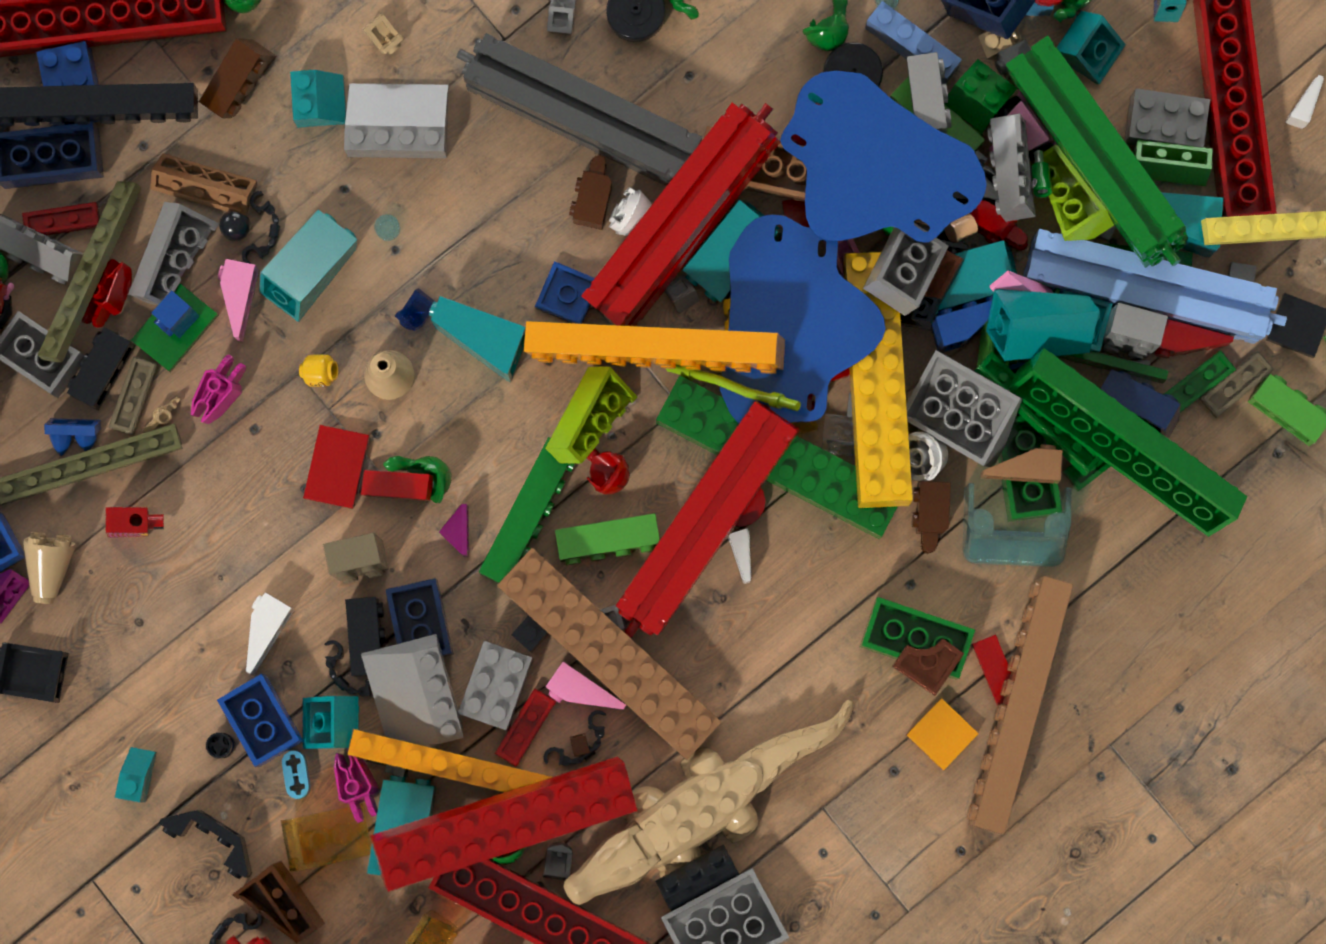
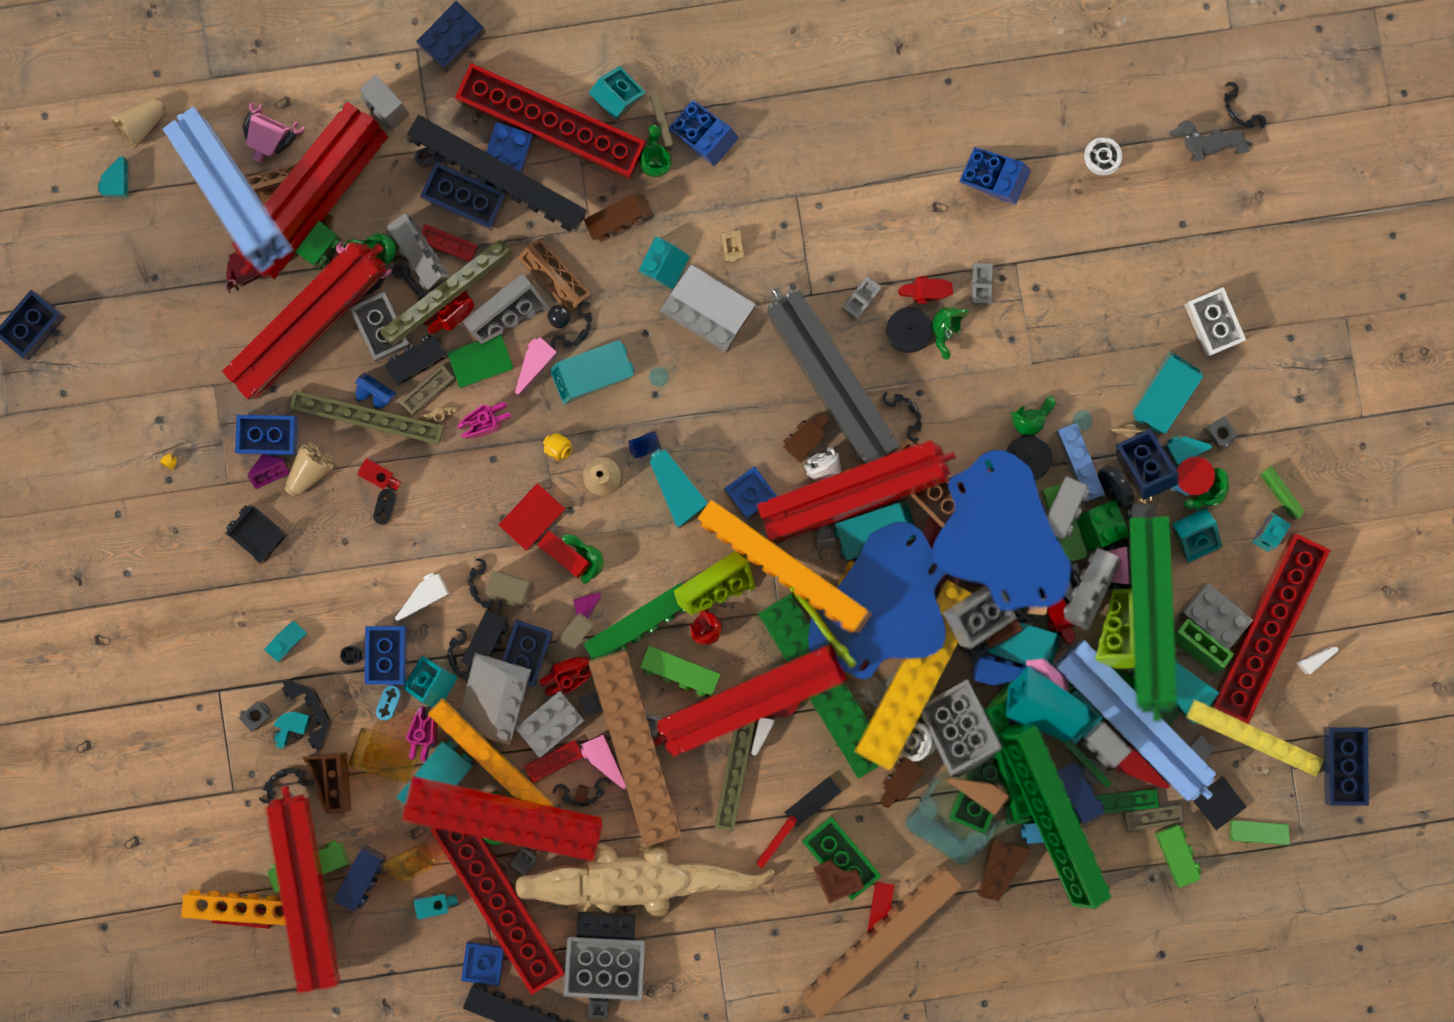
camera: 30 degrees right, 5 degrees up
(28, 282) = (401, 271): none -> black bar
(141, 888) = (250, 722): none -> dark grey brick
(167, 553) = (380, 505): none -> black beam
(174, 315) = (484, 356): blue brick -> none
(193, 865) = (291, 721): none -> teal brick
(321, 590) = (473, 590): none -> black piece
(461, 576) = (570, 638): none -> dark tan tile
(482, 619) = (567, 674): none -> red hinge
(690, 93) = (914, 409): none -> black piece
(740, 620) = (734, 776): none -> olive plate
(833, 664) = (776, 841): none -> red tile
(846, 596) = (813, 800): none -> black tile
(942, 734) = (820, 928): light orange tile -> none
(969, 42) = (1116, 486): none -> black wheel
(1041, 176) = (1107, 606): green piece -> none
(1102, 541) = (1001, 867): none -> reddish brown wedge
(1112, 482) = (1030, 833): none -> dark azure brick

